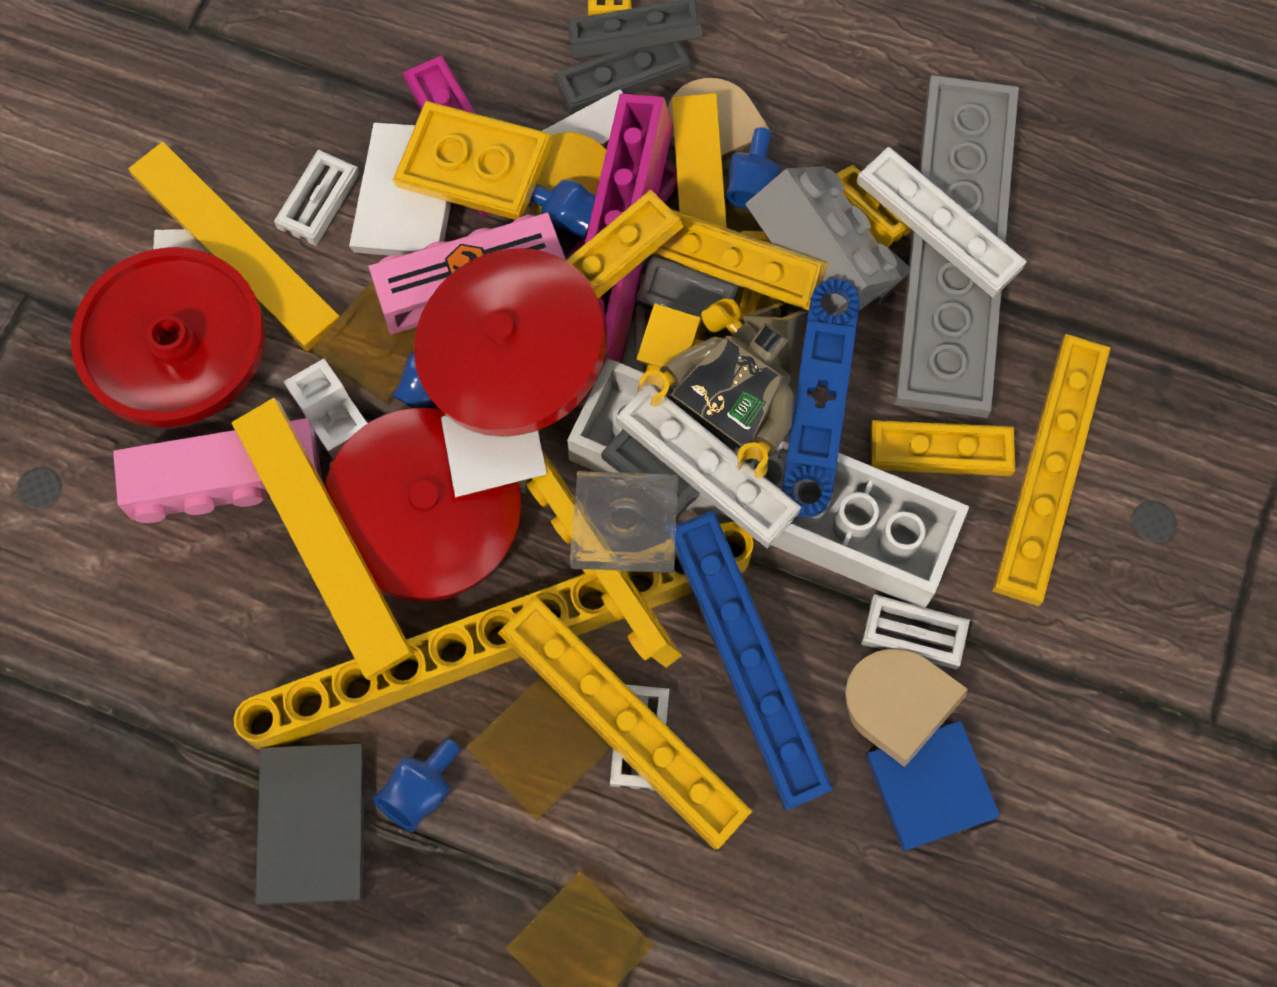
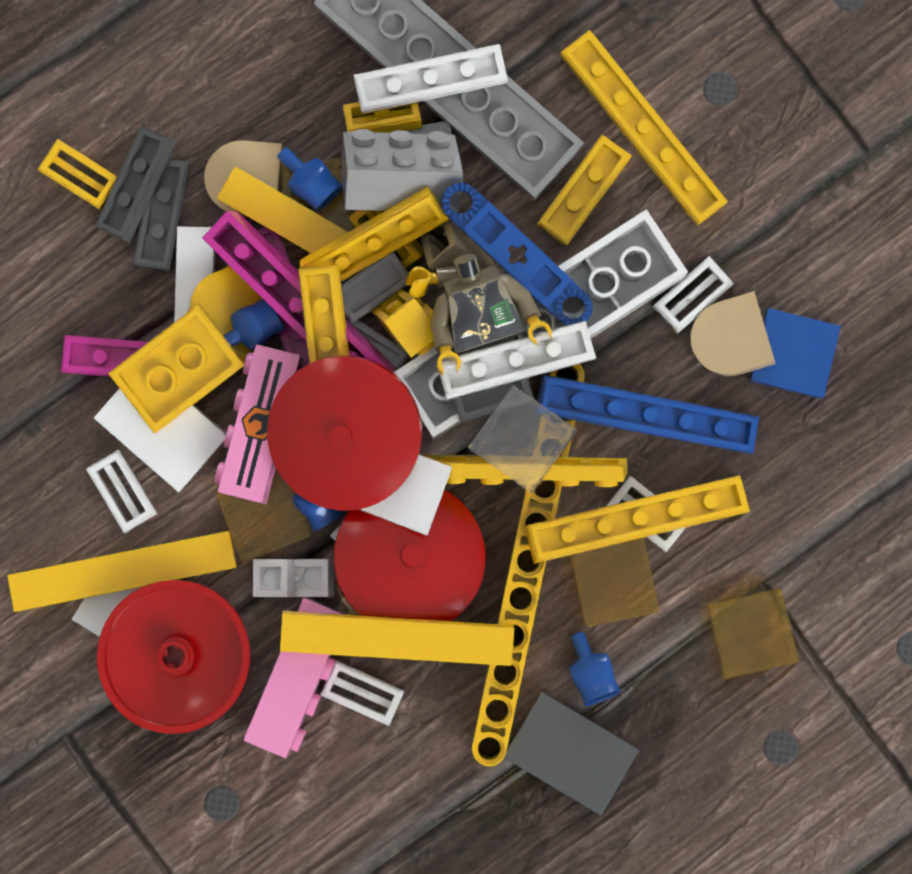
camera: 55 degrees left, 15 degrees up
(250, 593) = (391, 705): none -> white tile

